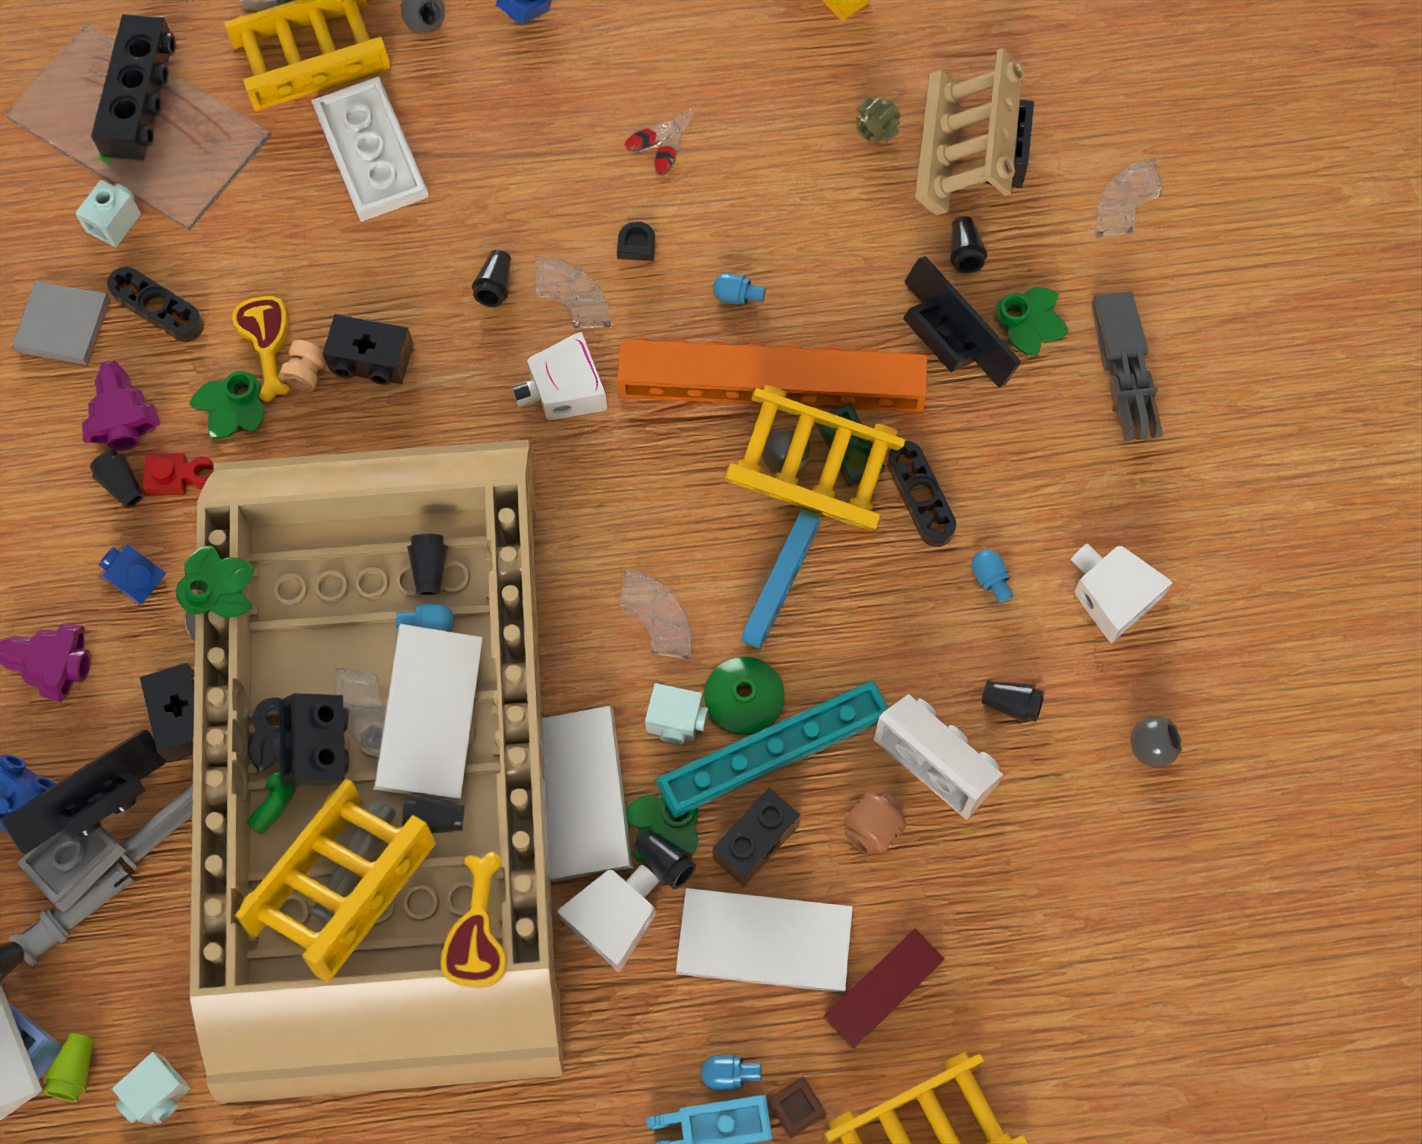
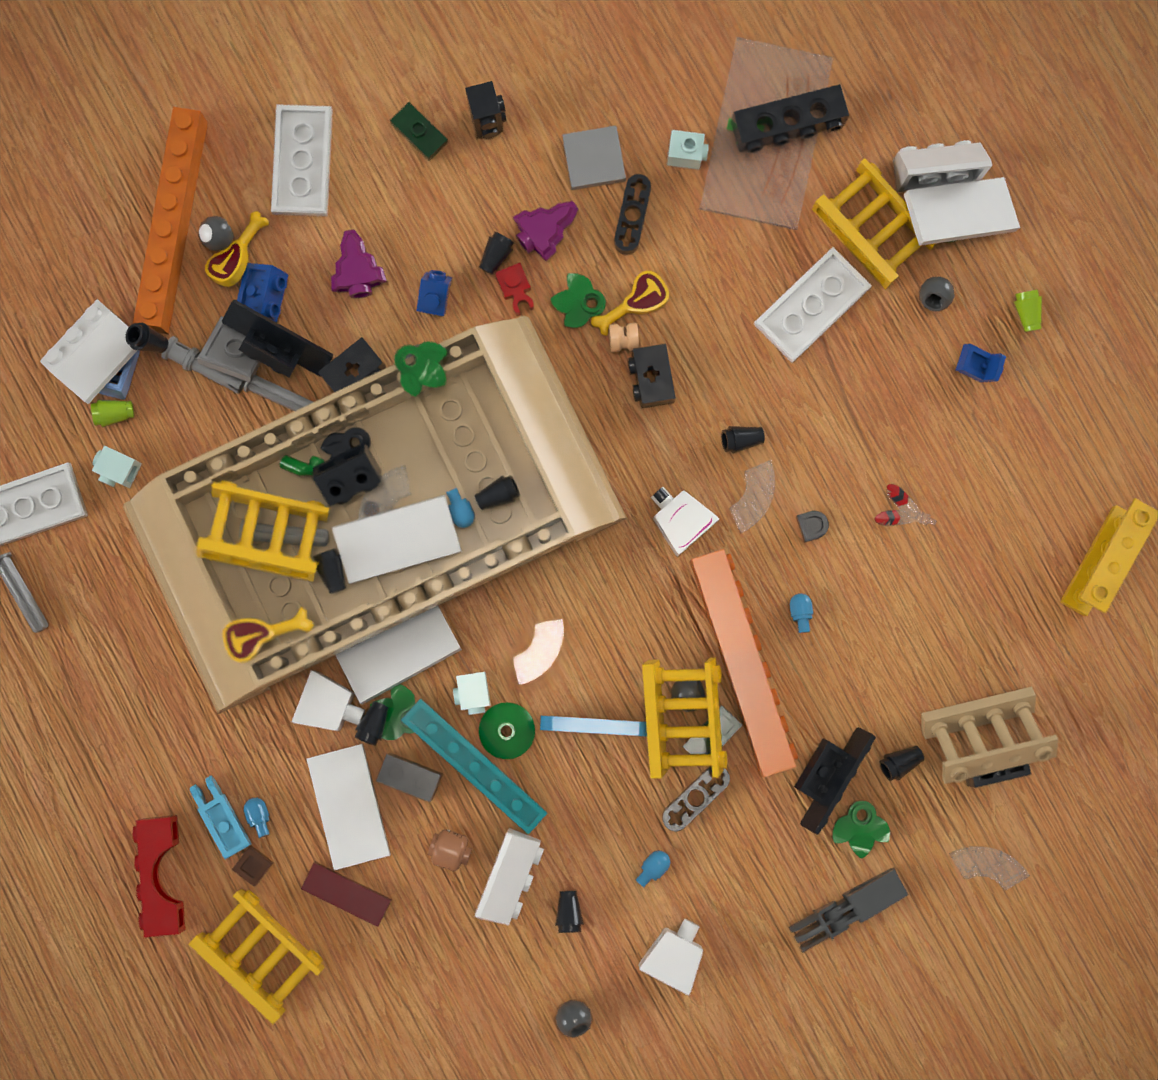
camera: 65 degrees right, 15 degrees up
(878, 120) = (978, 662): olive gear -> none

